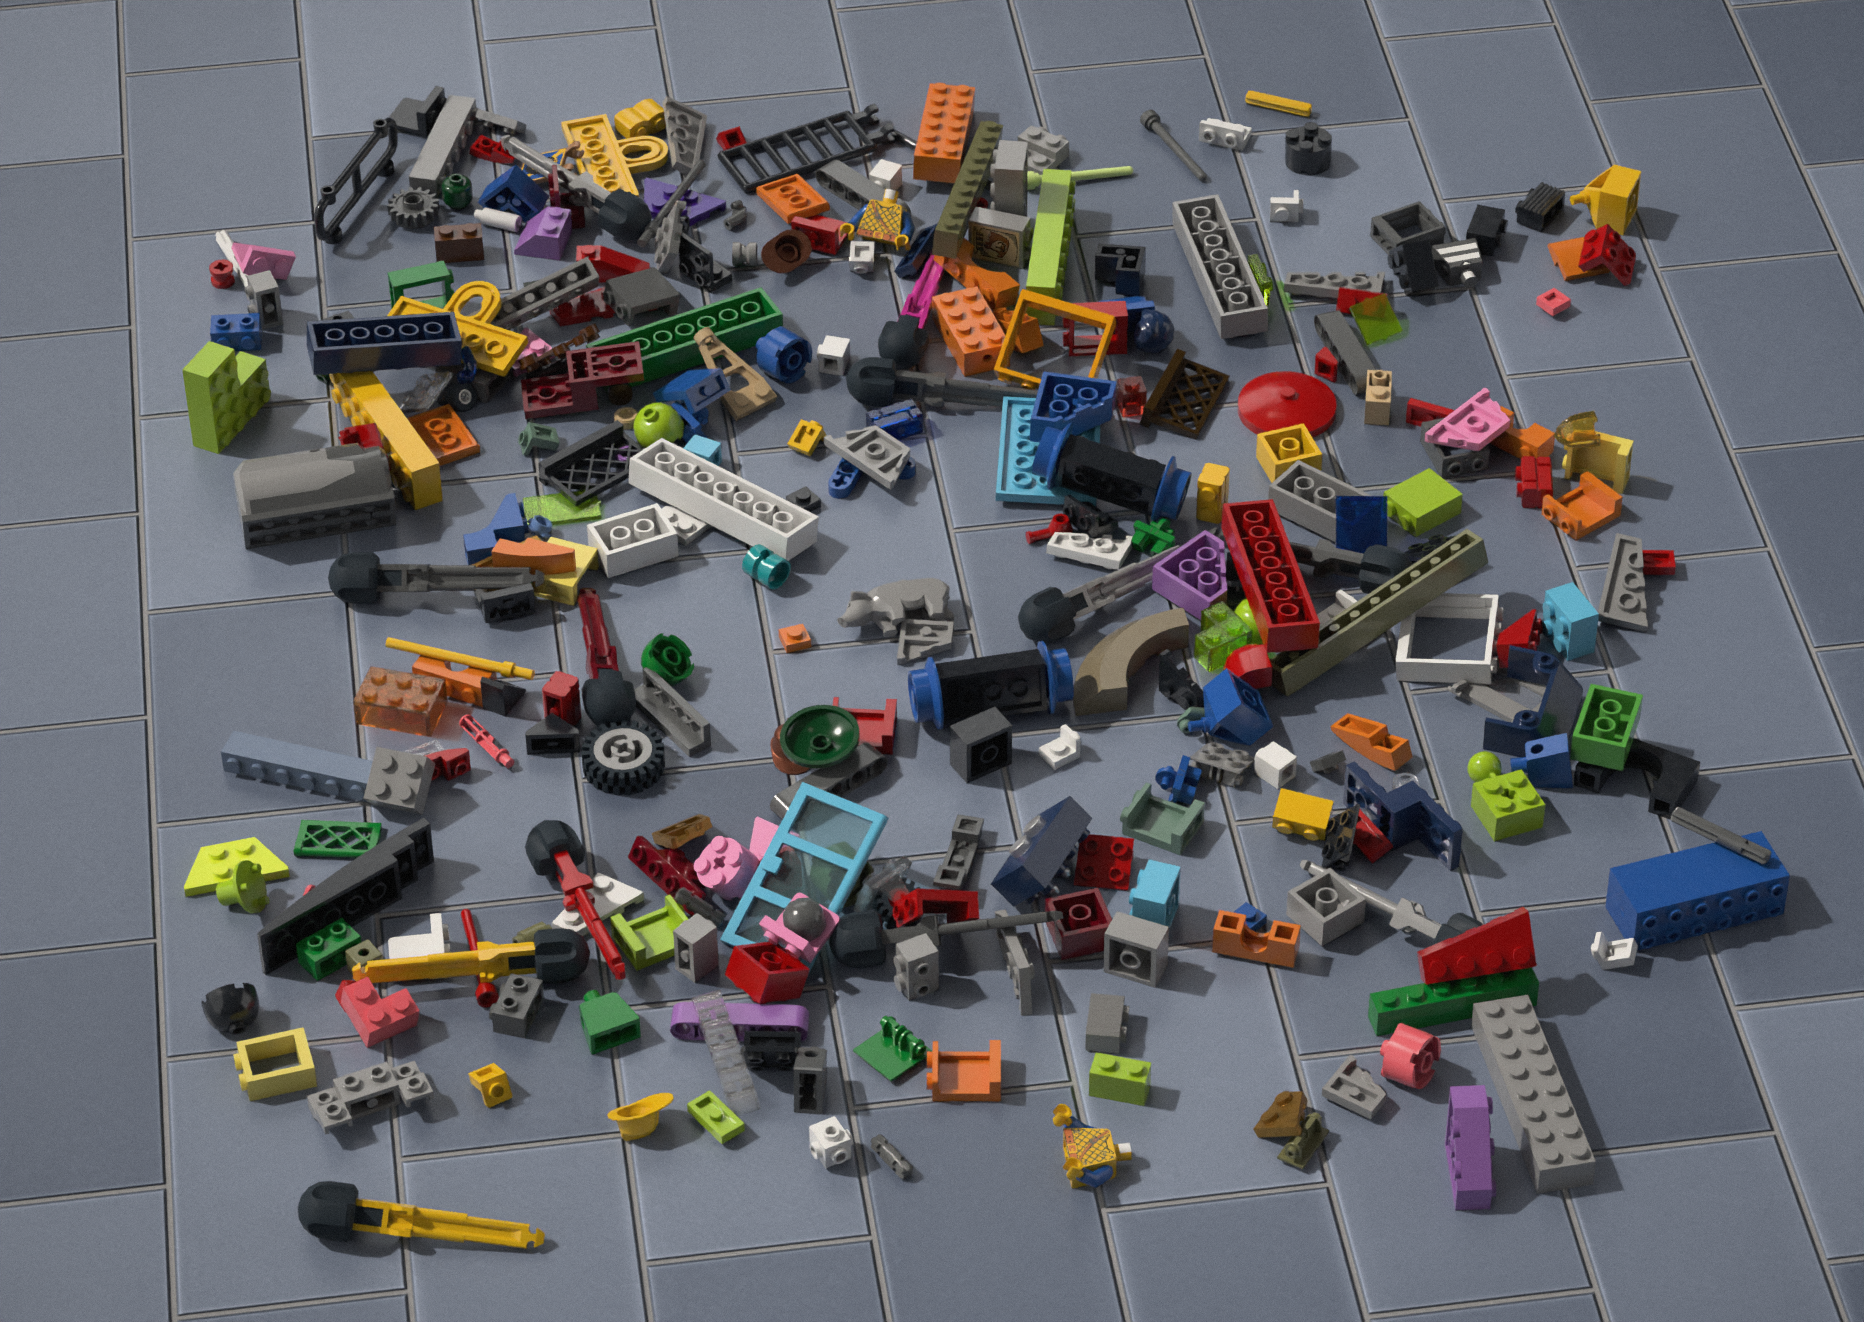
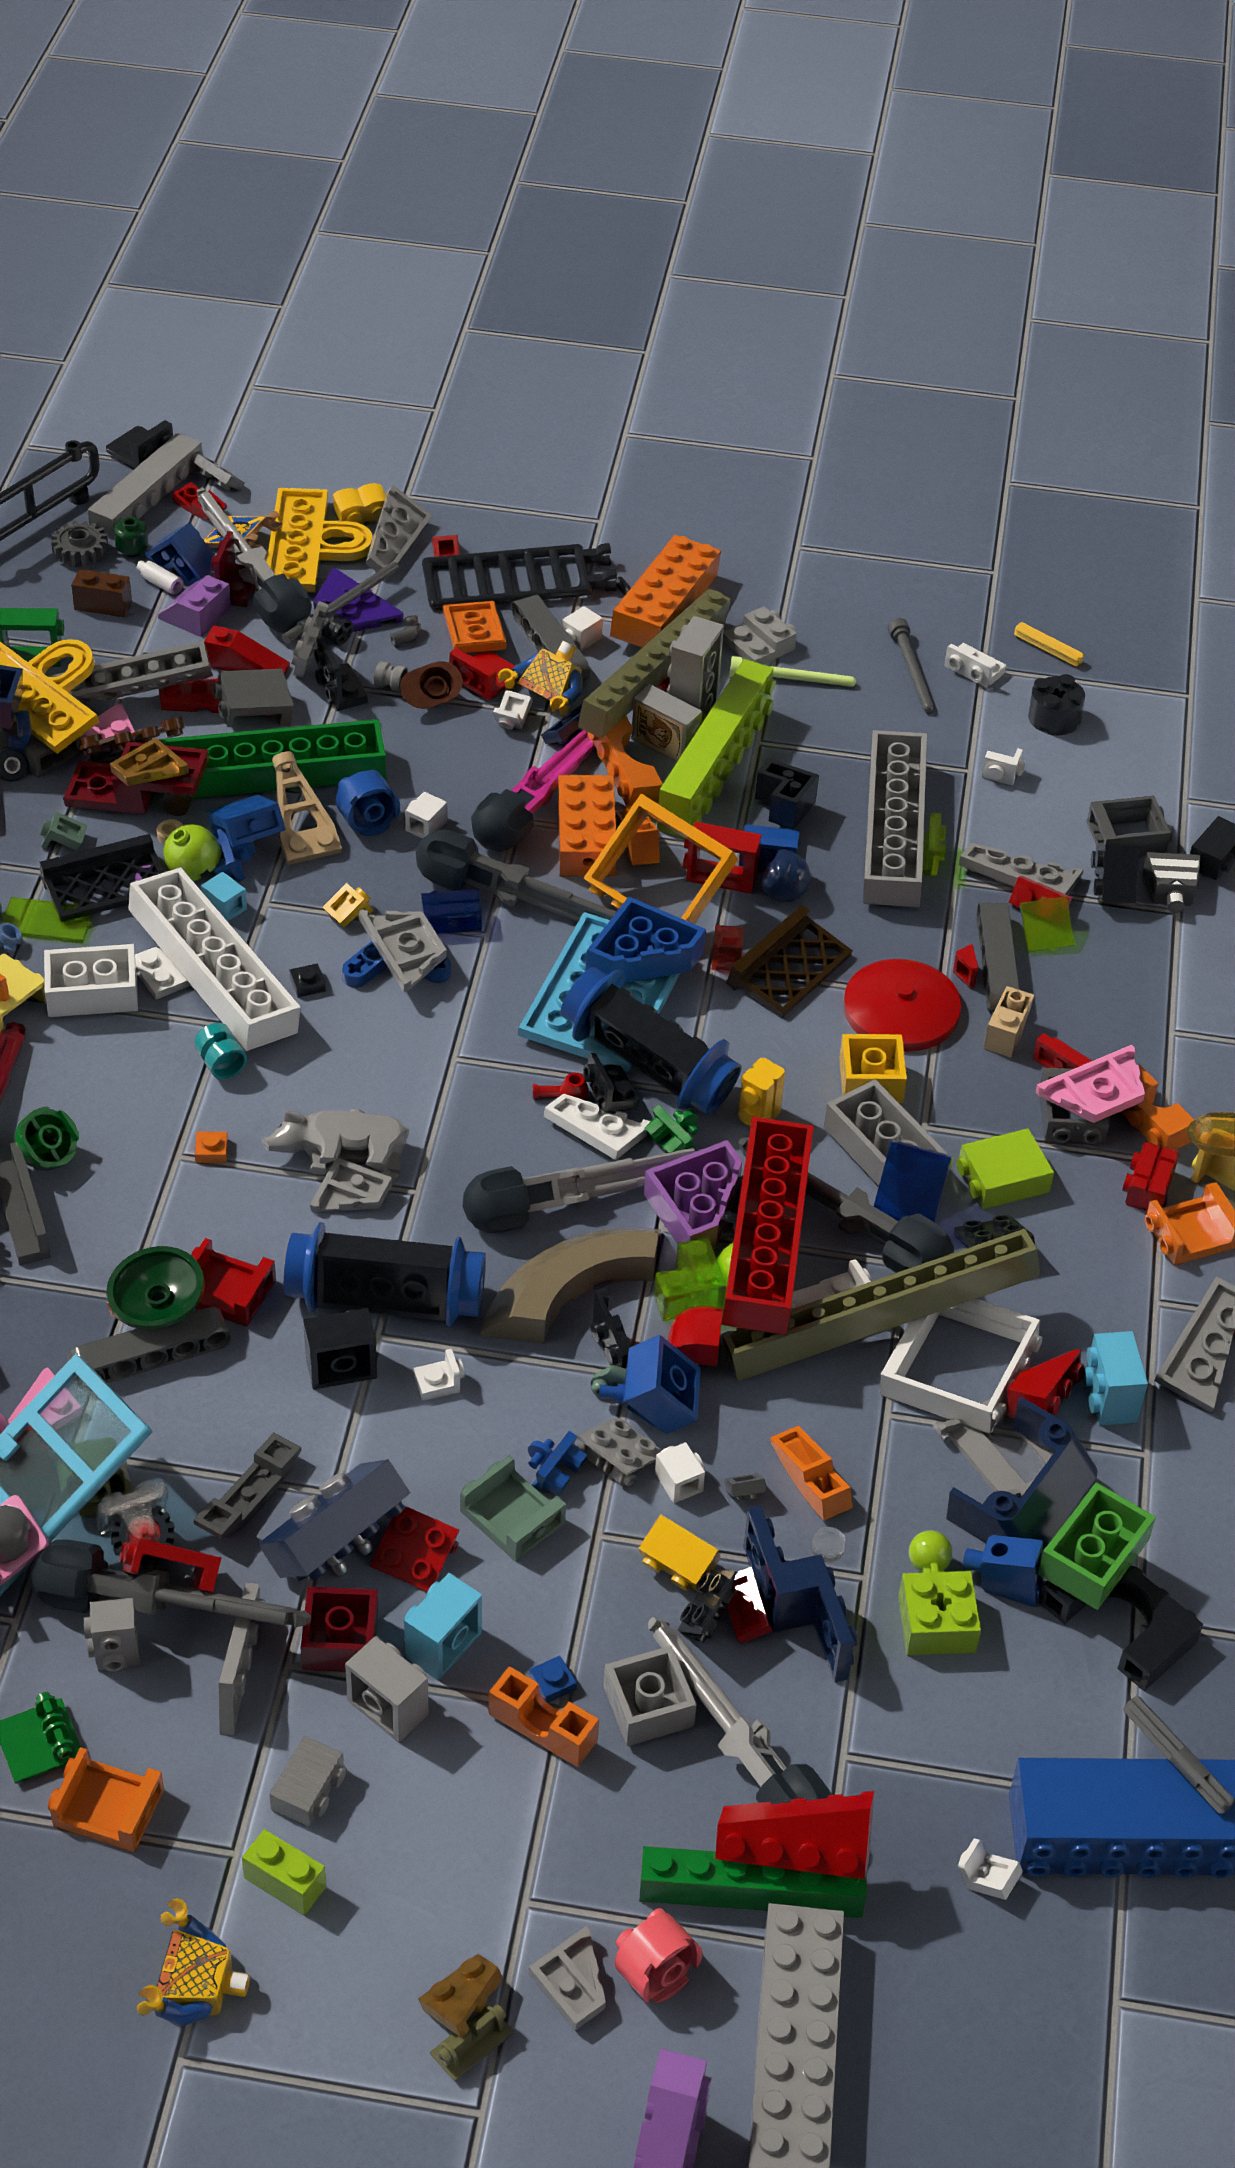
camera: 15 degrees right, 5 degrees up
(598, 362) = (148, 763): none -> pearl gold wing

